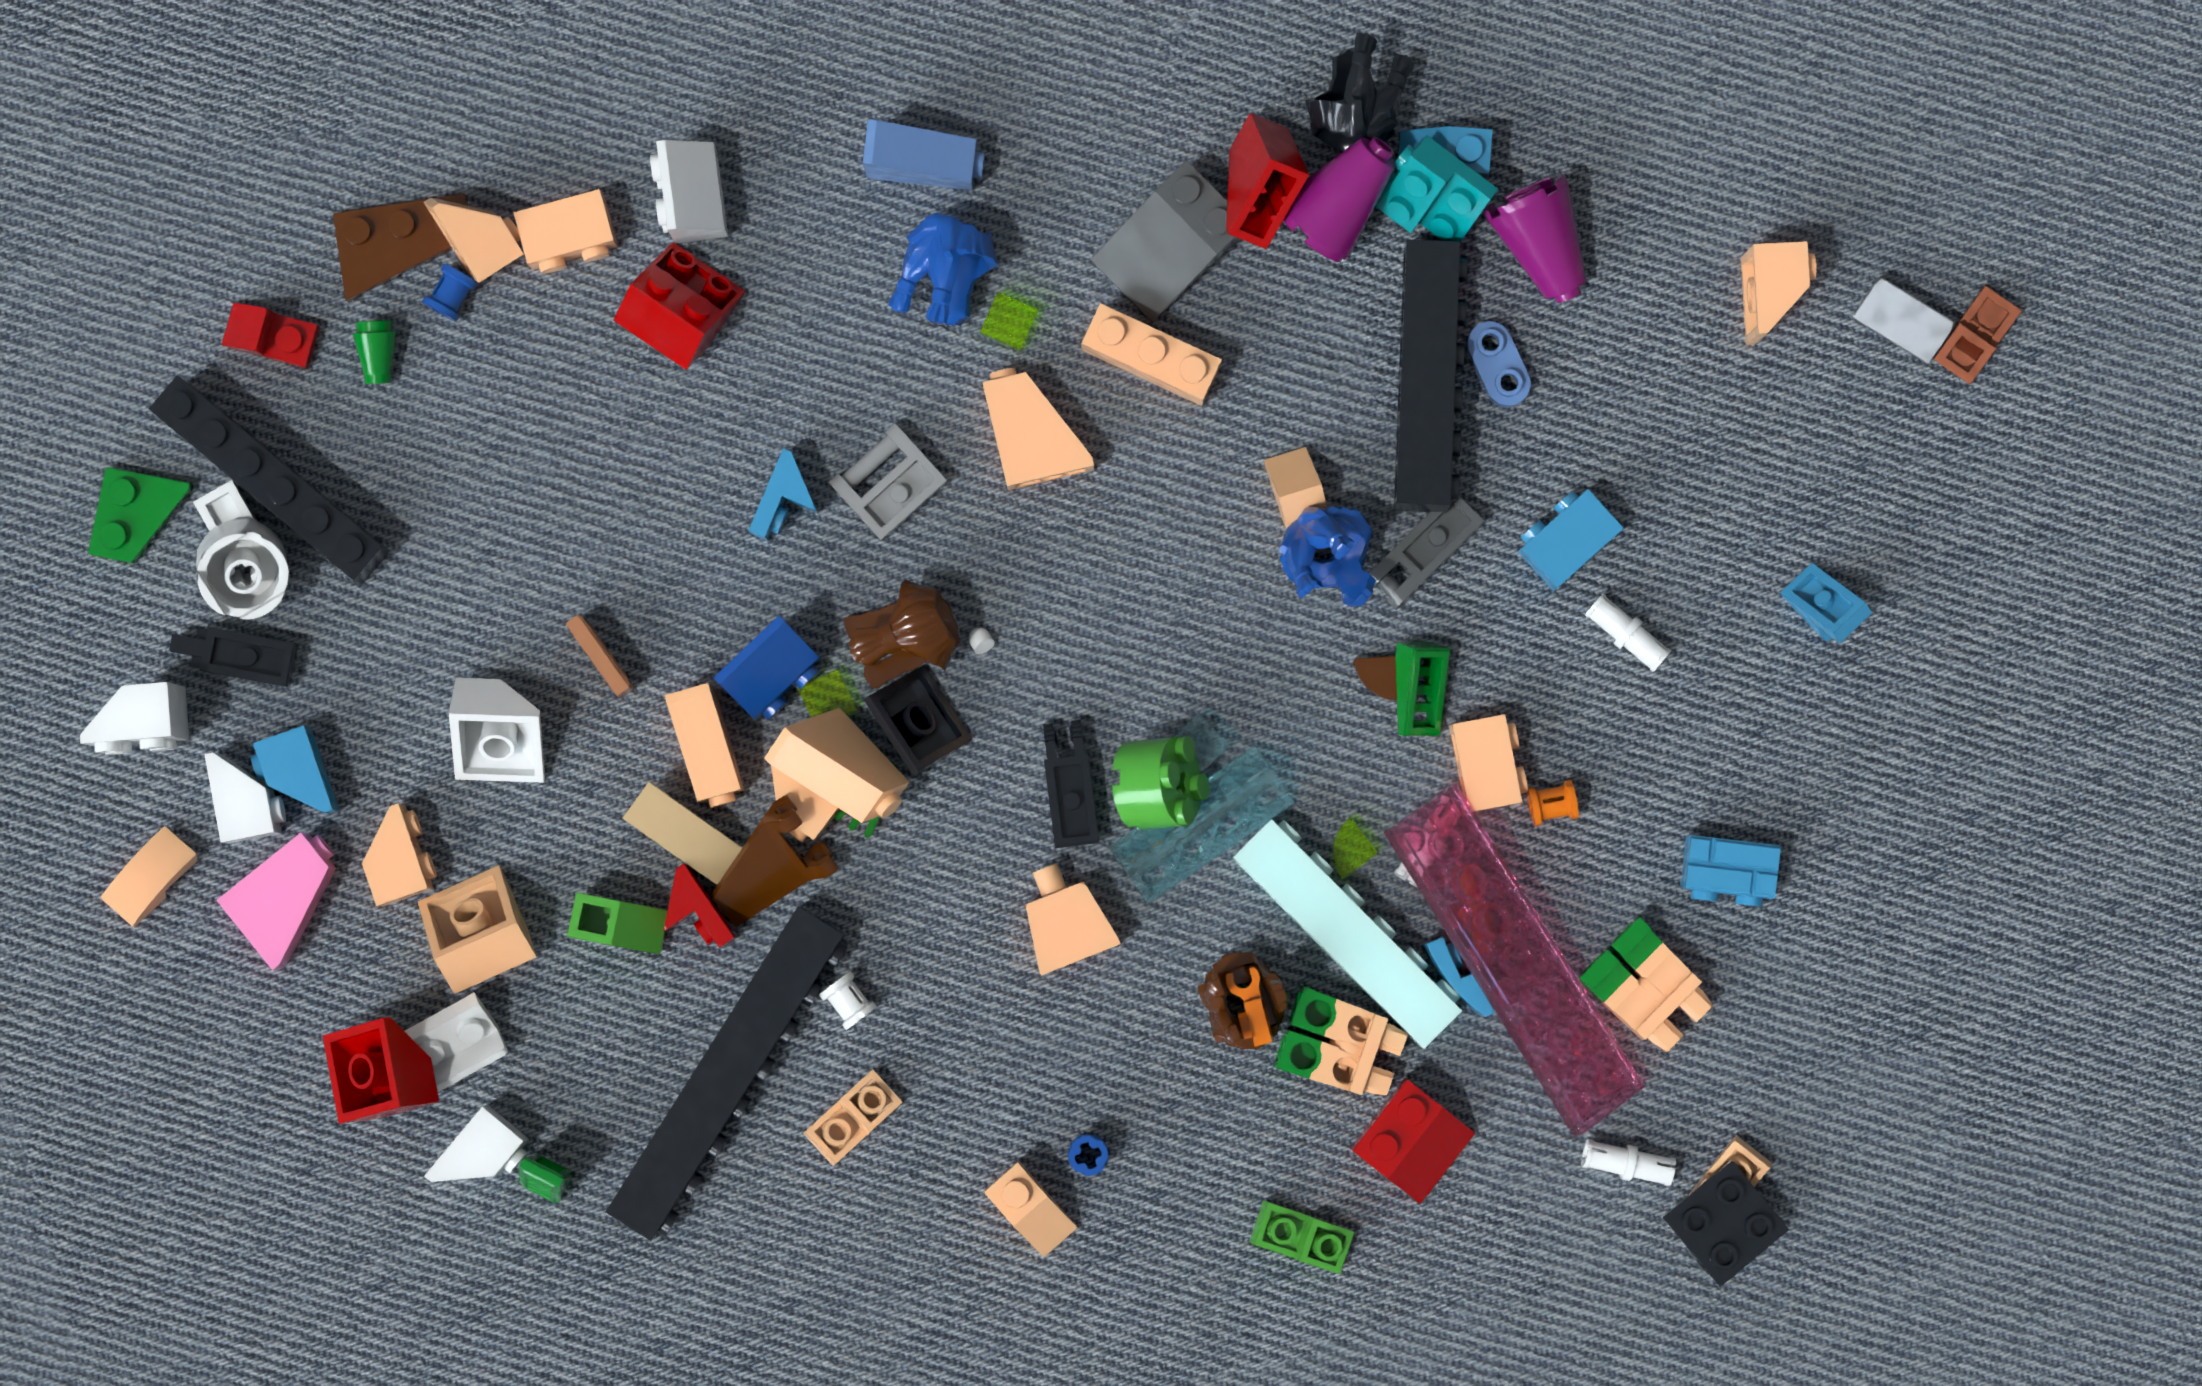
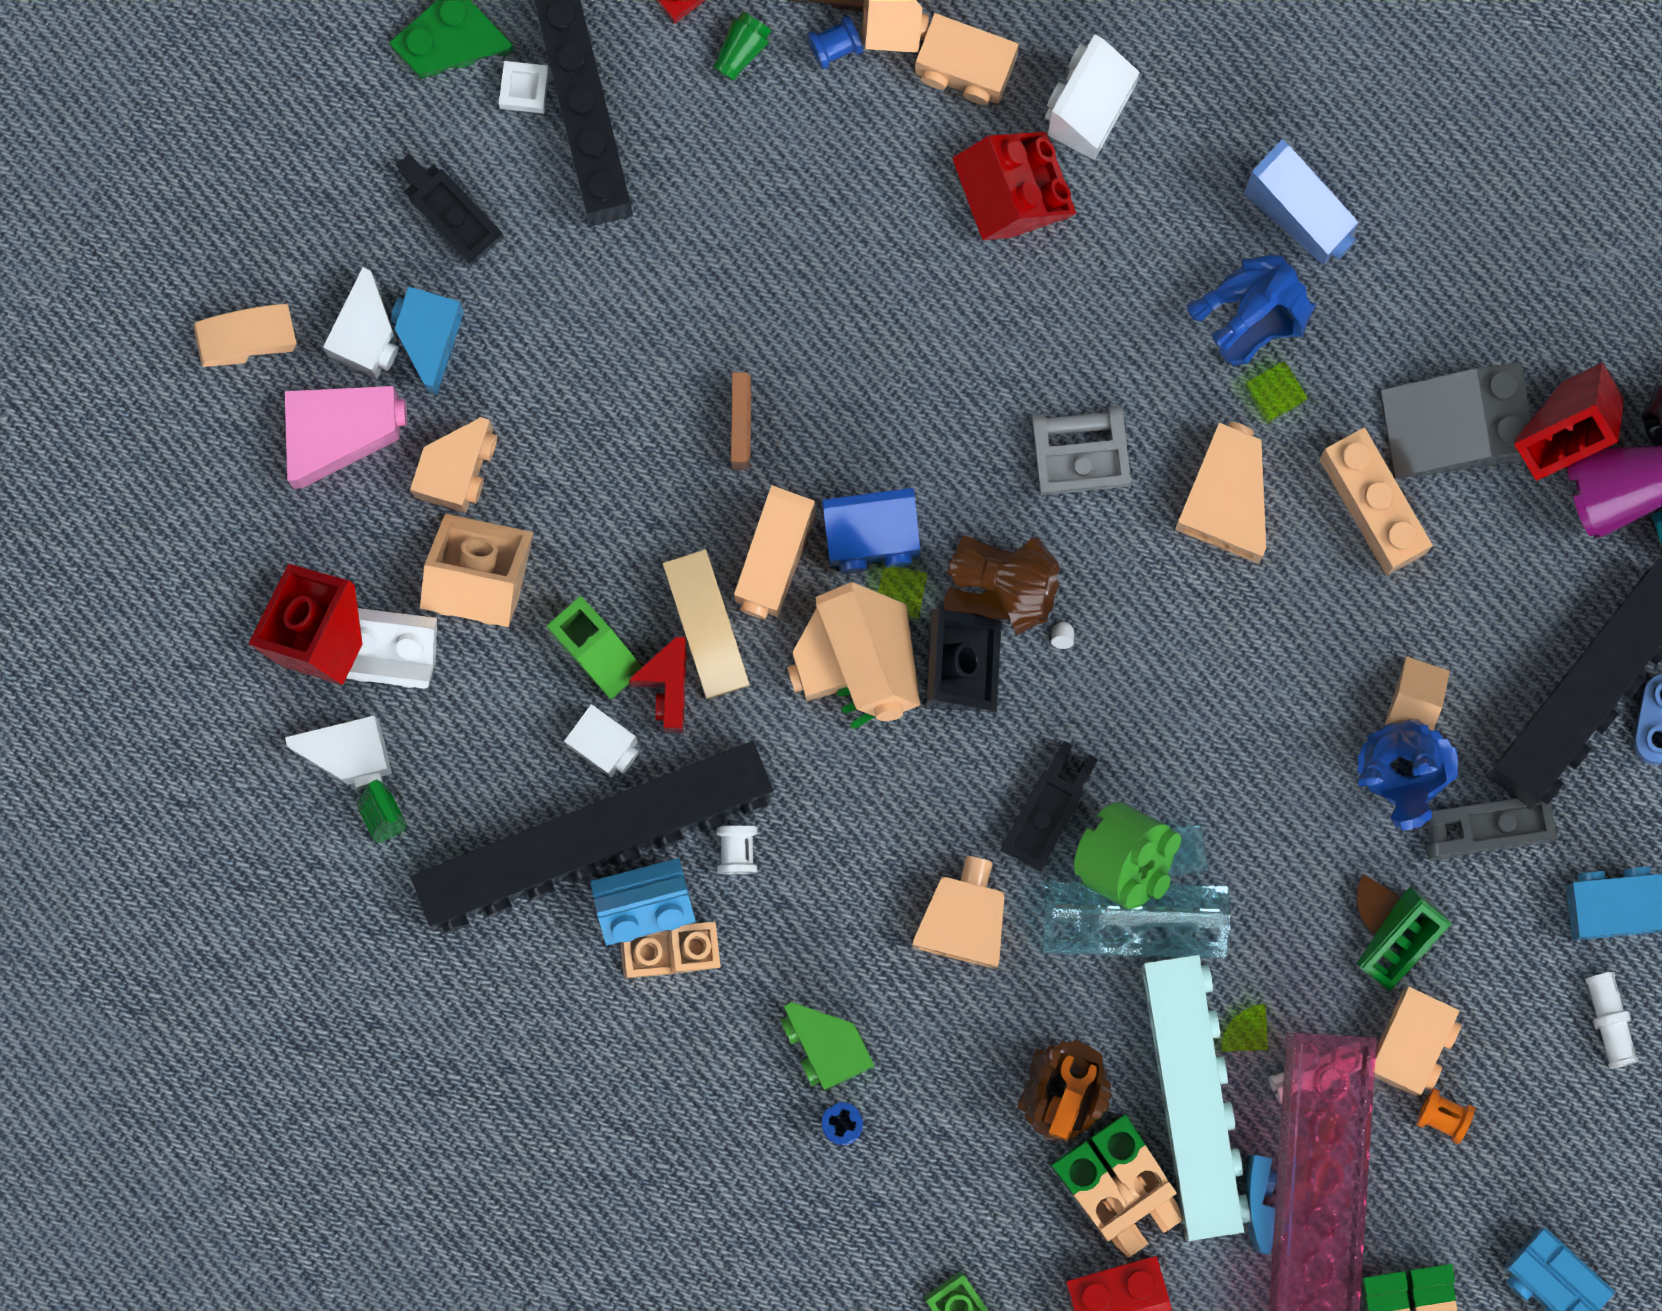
camera: 40 degrees right, 5 degrees down
(140, 715) = (332, 199): white slope -> none
(231, 591) = (484, 156): white brick -> none
(494, 733) = (609, 421): white slope -> none
(679, 993) = (603, 742): none -> white brick
(770, 866) = (753, 692): reddish brown flag -> none
(784, 485) = (992, 391): dark azure slope -> none
(804, 1097) = (642, 902): none -> dark azure brick
(1030, 1208) = (761, 1133): light nougat slope -> none
(1032, 1099) = (830, 1044): none -> bright green slope

